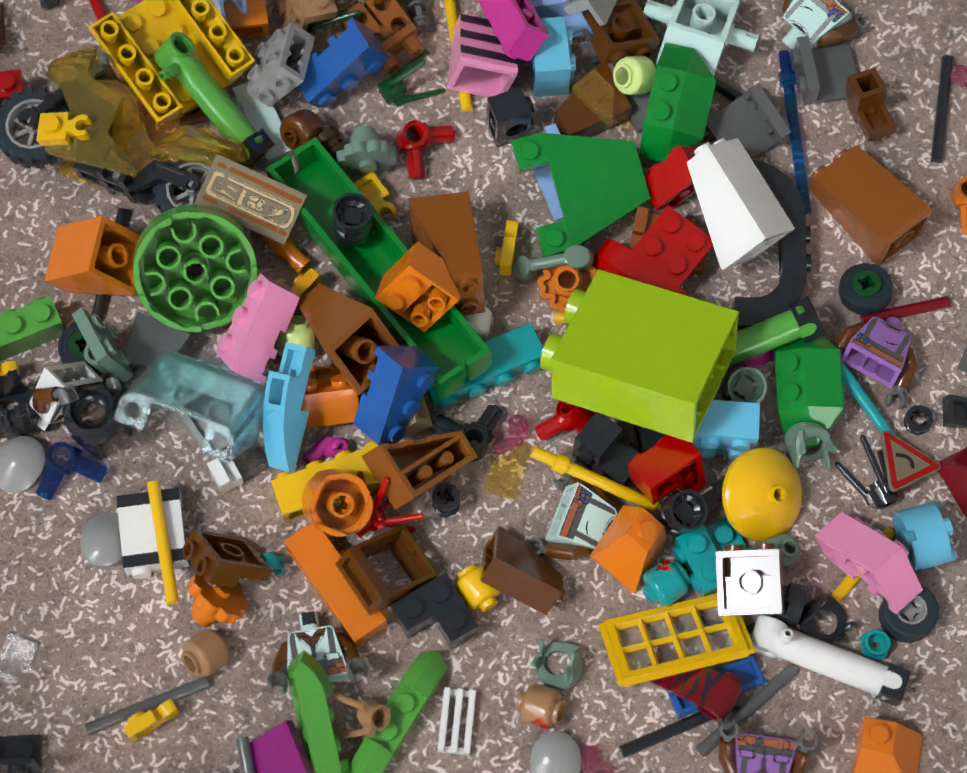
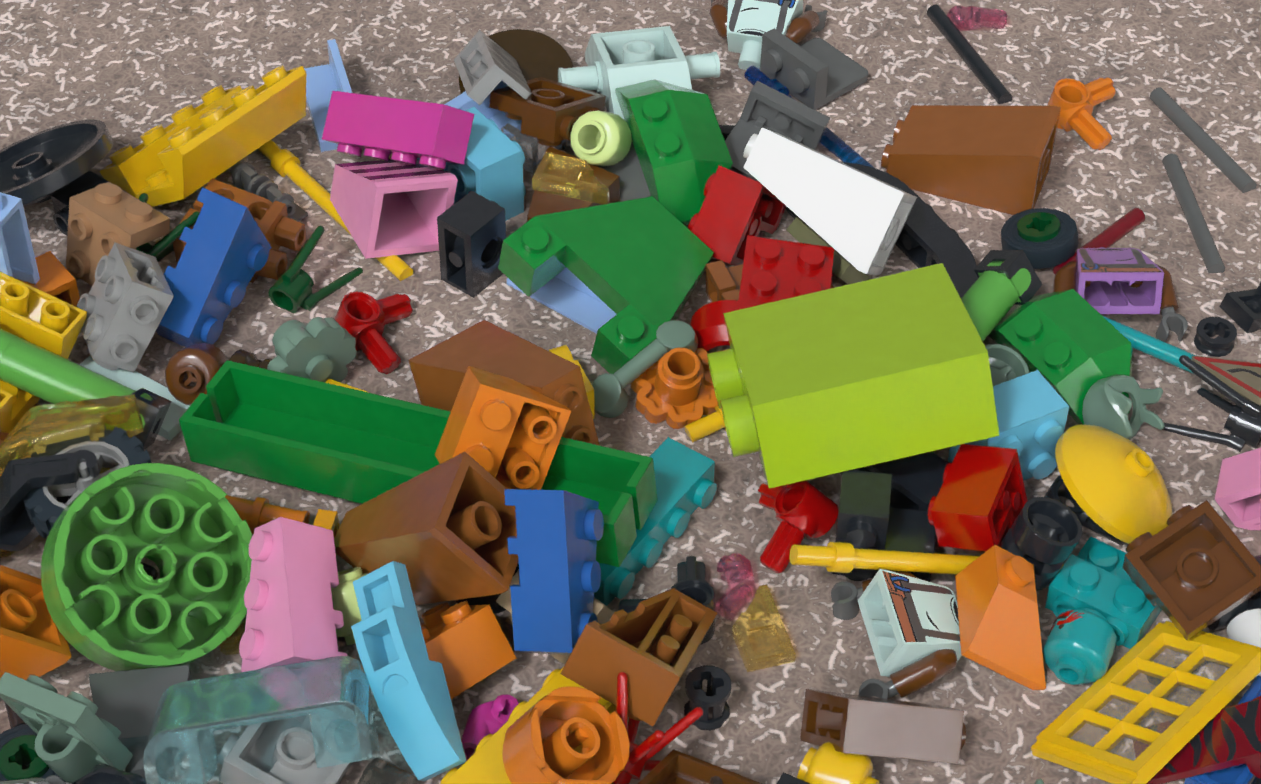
camera: 30 degrees left, 25 degrees down
(251, 198) = (214, 445): sticker -> none
(352, 219) = (348, 408): black wheel -> none
(867, 104) = (883, 70): reddish brown brick -> none

